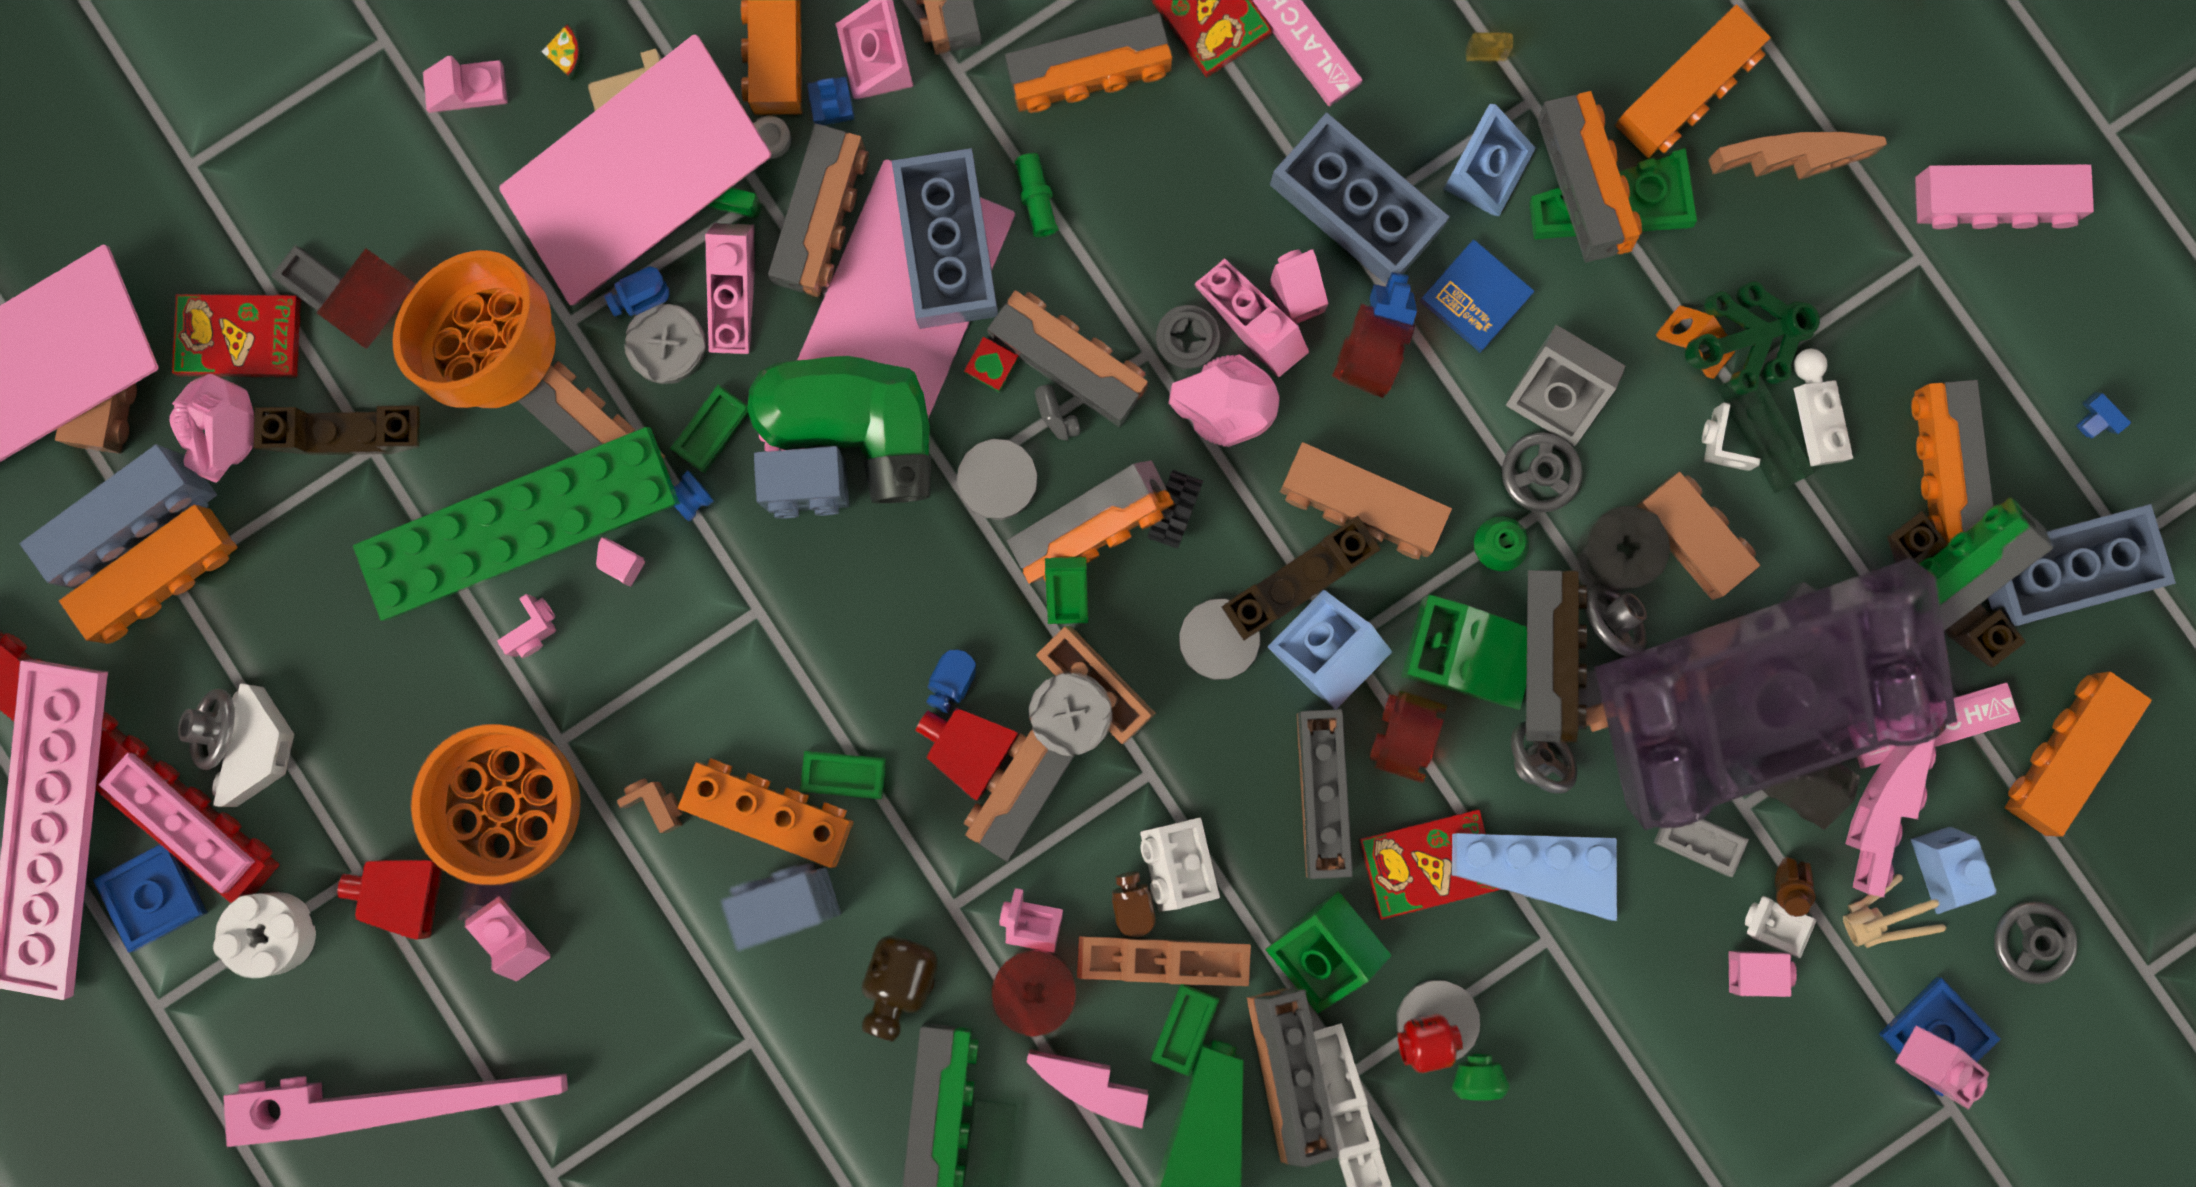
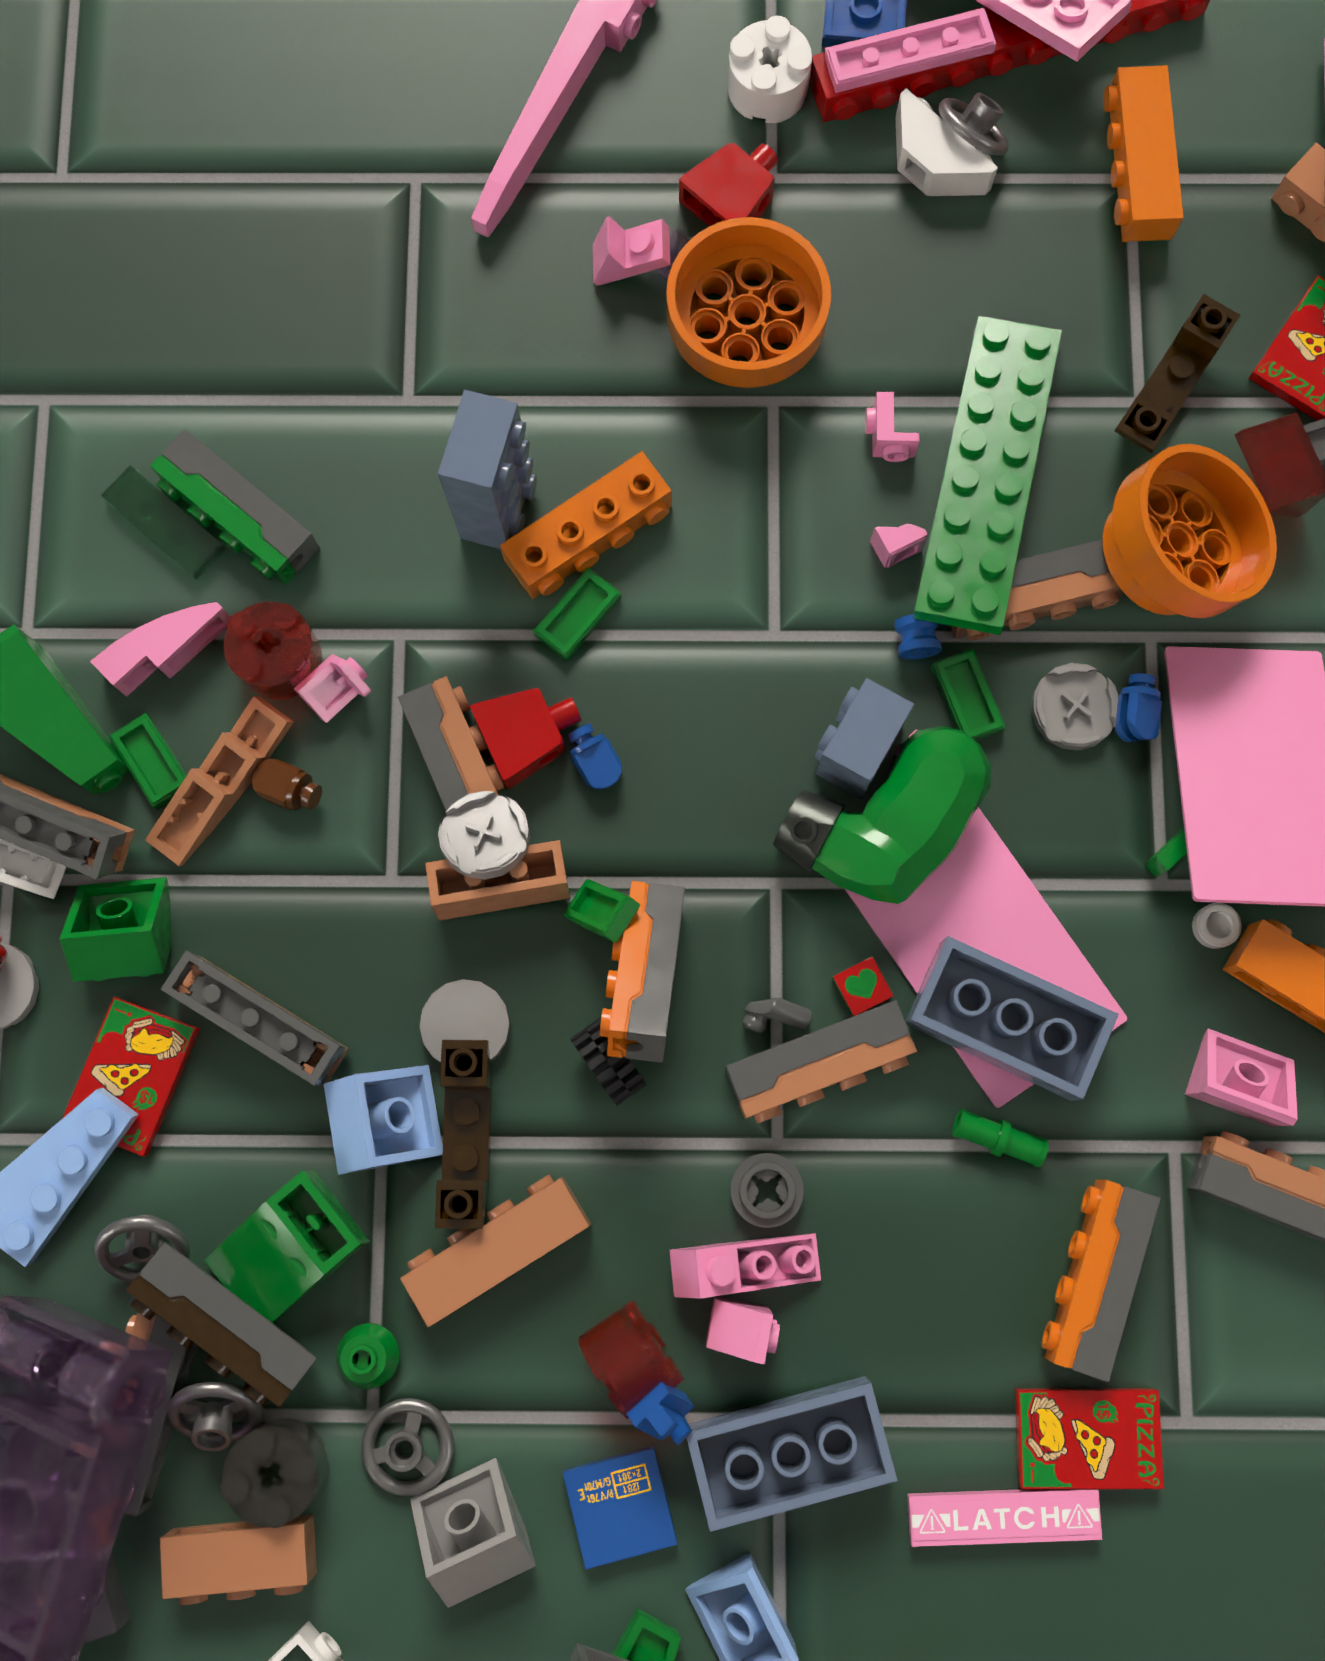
camera: 125 degrees right, 5 degrees down
(116, 517) = (1212, 153): sand blue brick -> none
(228, 424) = (1247, 273): bright pink helmet -> none
(659, 803) = (661, 442): nougat bracket -> none
(730, 287) = (1094, 796): bright pink slope -> none
(817, 210) = (1115, 922): piece -> none
(830, 101) = (1217, 1004): blue tile -> none
(897, 982) = (364, 540): dark brown piece -> none
(997, 479) = (750, 920): light grey tile -> none
(1179, 865) = (290, 849): white bracket -> none
(1227, 400) = (679, 1185): bright pink helmet -> none
(1409, 736) = (249, 1135): clear red brick -> none

